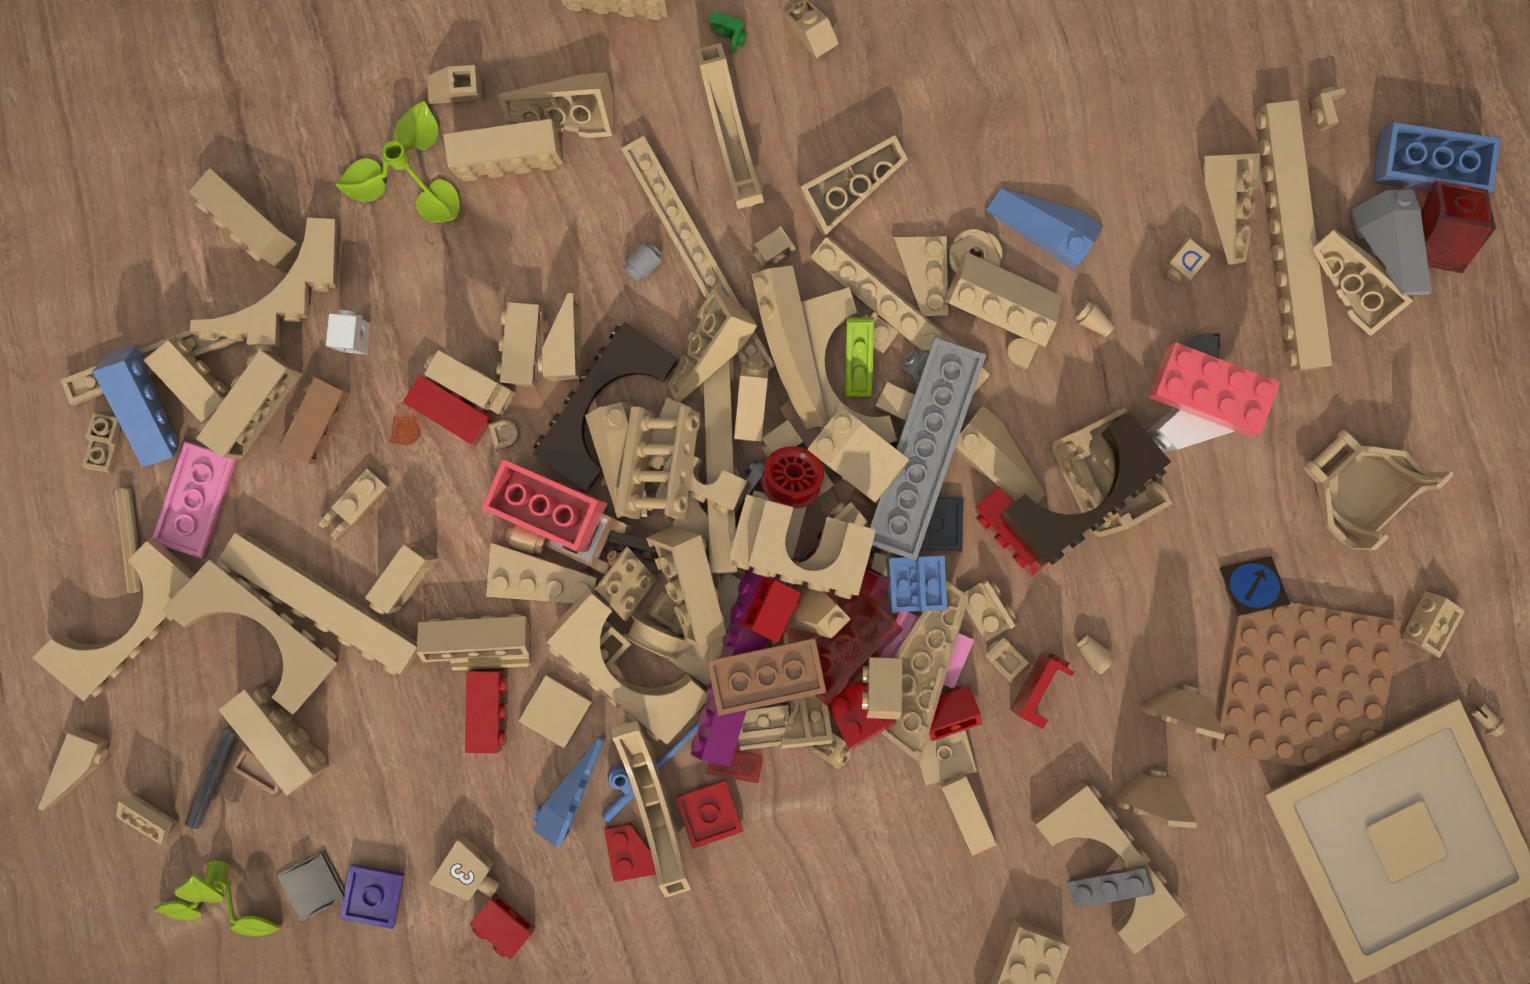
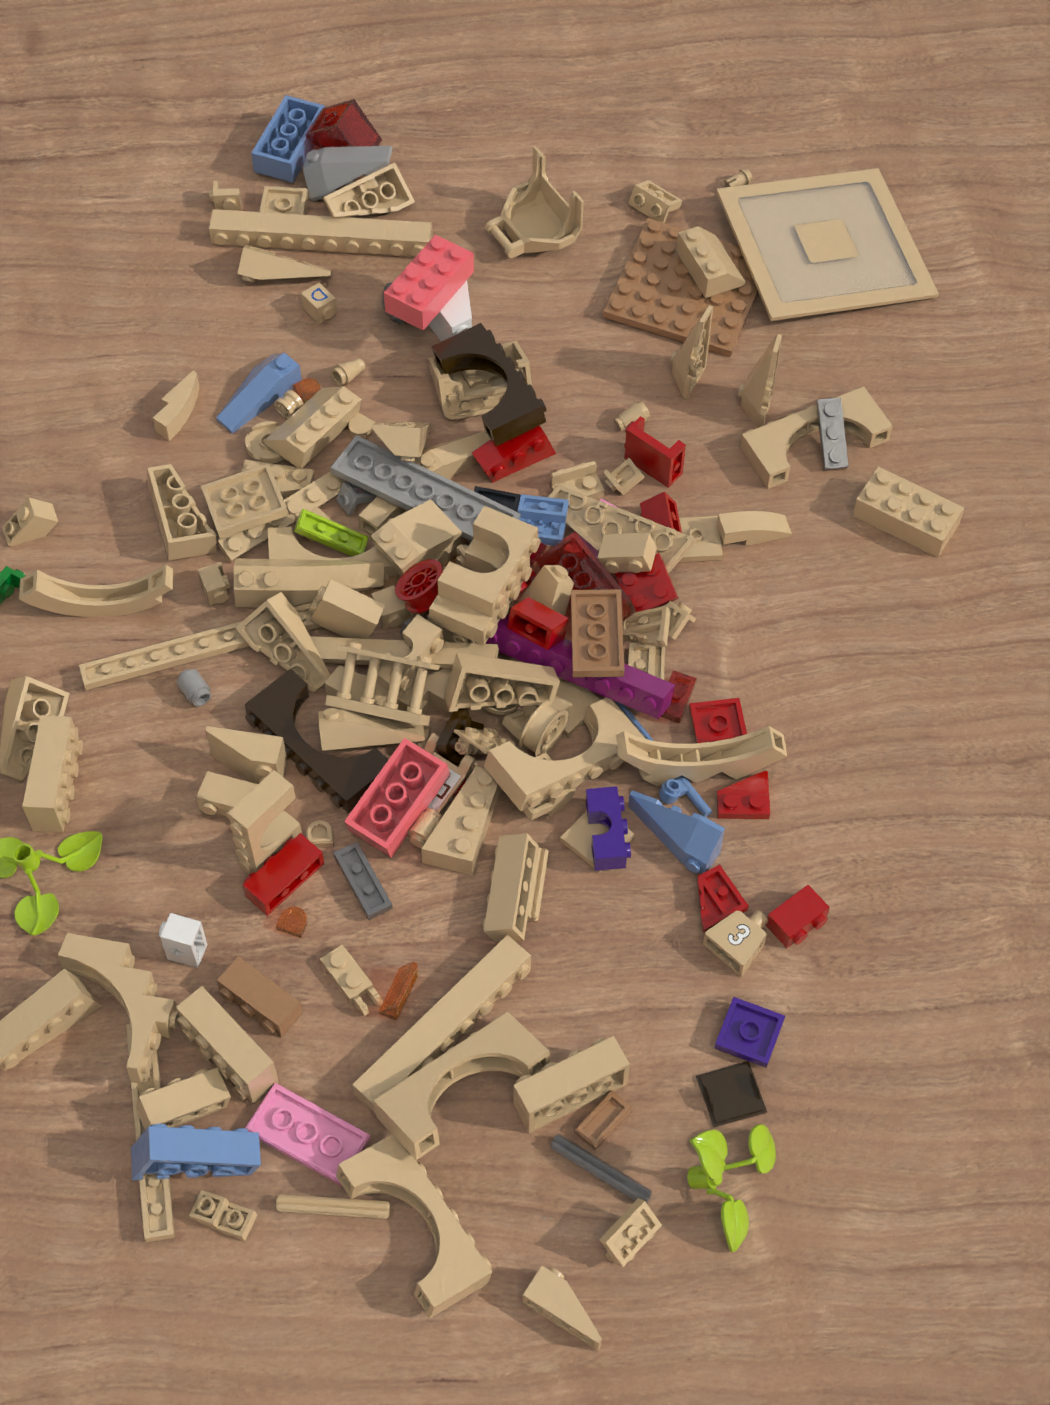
camera: 80 degrees left, 30 degrees down
(350, 551) = (399, 991): none -> clear orange slope
(400, 579) = (436, 936): tan window -> none
(458, 489) = (363, 880): none -> flat silver plate
(485, 711) = (583, 894): red brick -> none
(507, 844) = (717, 897): none -> red wing
(533, 731) = (605, 808): none -> dark purple arch
(879, 252) = (244, 500): none -> tan plate
(996, 407) = (403, 438): none -> tan wedge
(1004, 142) = (177, 407): none -> tan slope
(1031, 264) = (288, 404): none -> tan wheel
(1060, 280) = (306, 388): none -> clear orange tile
(1254, 586) = (598, 303): piece -> none
(1333, 180) = (284, 200): none -> tan plate
(1338, 708) = (707, 262): none -> tan slope

